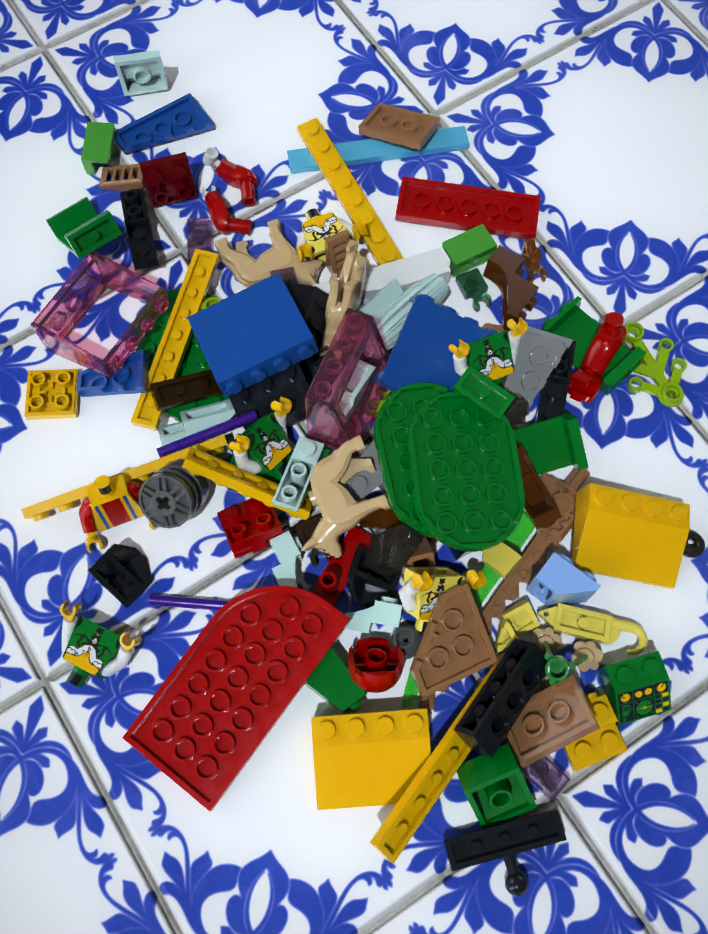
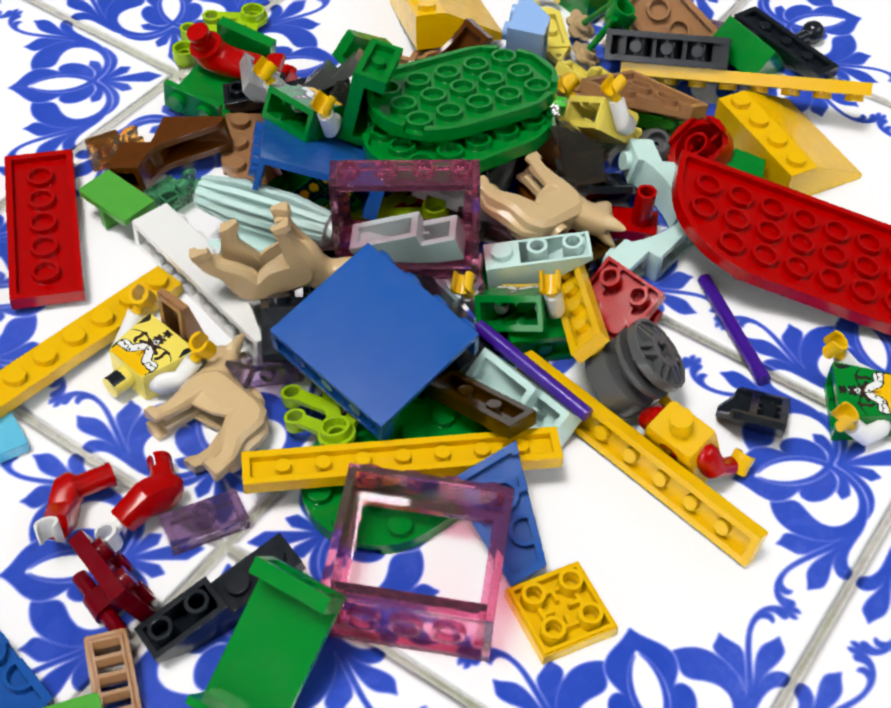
camera: 115 degrees left, 20 degrees down
(540, 403) = (329, 74): none -> dark grey slope

